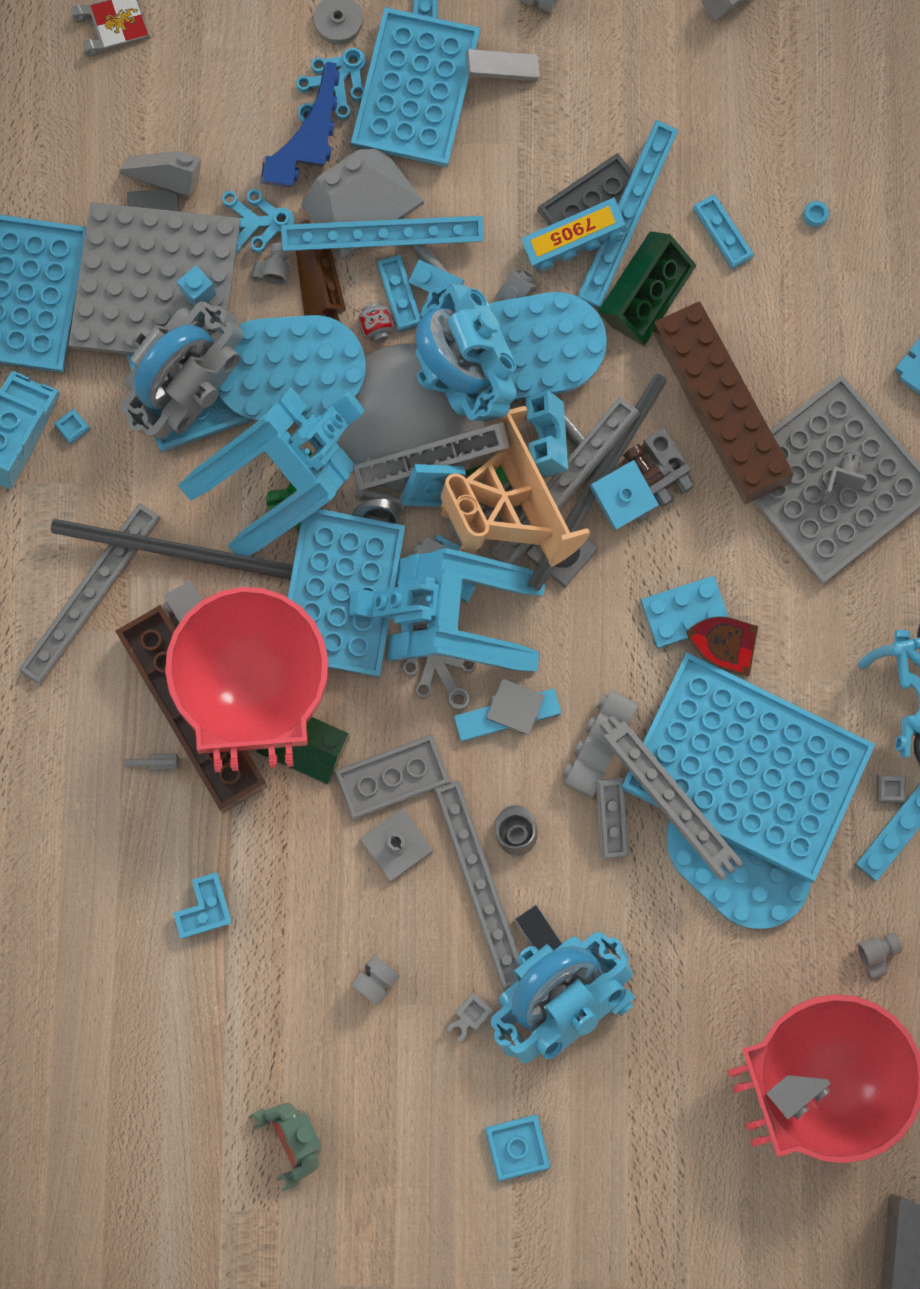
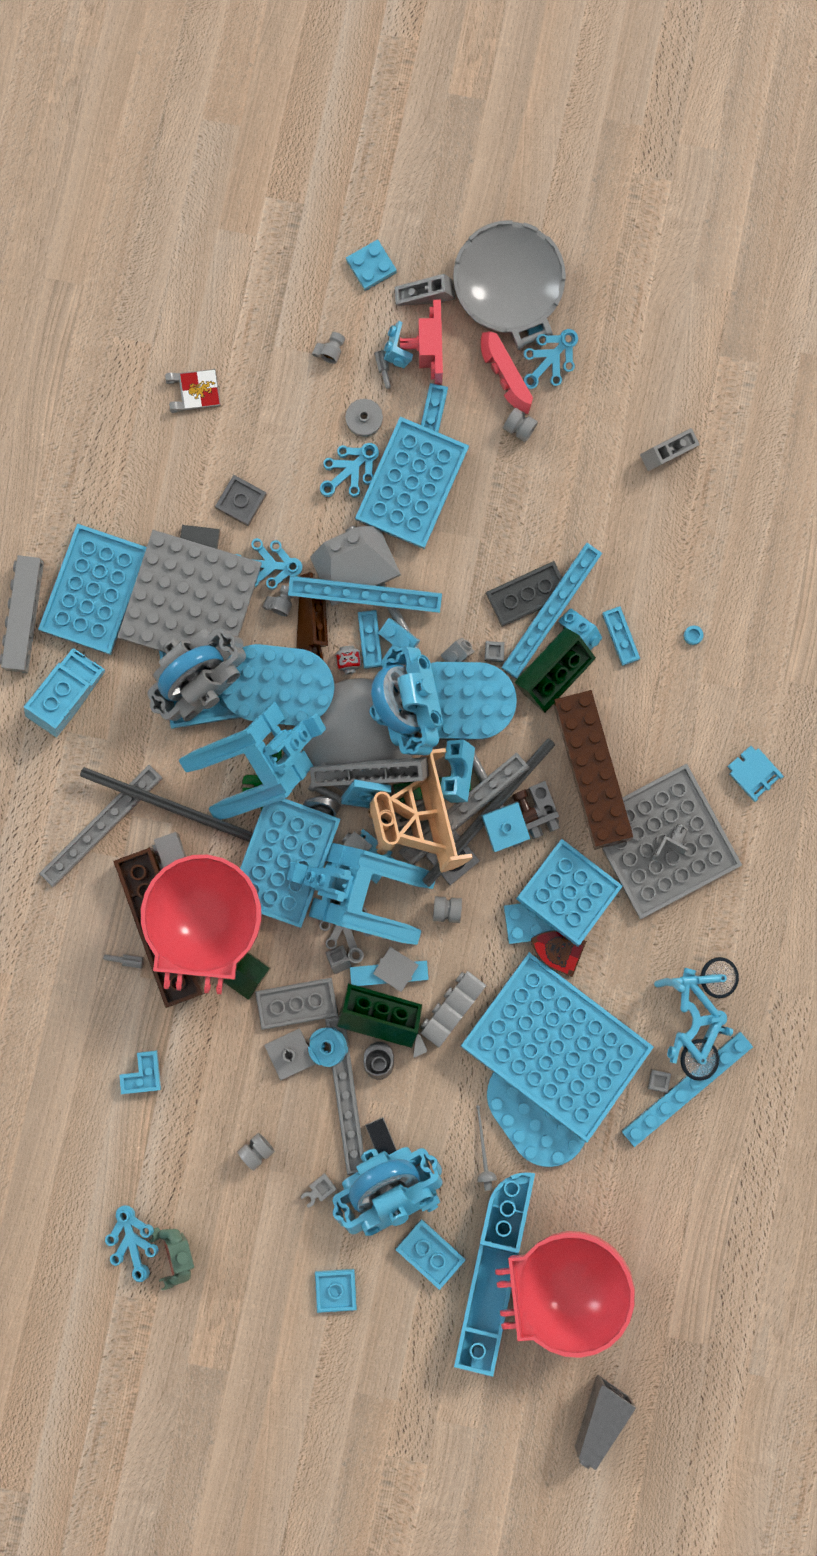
camera: 10 degrees right, 5 degrees up
(72, 426) = (110, 697): medium azure tile -> none
(167, 170) = (212, 513): light grey slope -> none
(196, 286) = (218, 612): medium azure brick -> none
(202, 142) = (241, 500): none -> flat silver tile
(229, 1133) = (131, 1240): none -> medium azure plant
(310, 142) = (324, 511): blue arch -> none
(437, 709) = (338, 959): none -> light grey slope
(459, 823) = (317, 1044): none -> medium azure plate
(502, 65) = (480, 477): light grey tile -> none
(506, 770) = (380, 1015): none -> dark green slope
(564, 279) = (494, 651): none -> light grey tile
(566, 800) = (419, 1047): none -> light grey slope
(568, 616) = (447, 909): none -> light grey wheel
(574, 235) = (508, 620): brick -> none
(611, 818) = (450, 1065): light grey tile -> none
(635, 1073) = (430, 1254): none -> medium azure plate
(666, 223) = (582, 627): none -> medium azure bracket
(670, 797) = (493, 1062): light grey hinge -> none
(689, 955) = (485, 1176): none -> light grey sword
(723, 565) = (569, 892): none -> medium azure plate
(724, 1030) = (499, 1241): none -> medium azure slope
(795, 1092) = (541, 1296): light grey slope -> none
(875, 951) = (622, 1199): light grey piece -> none

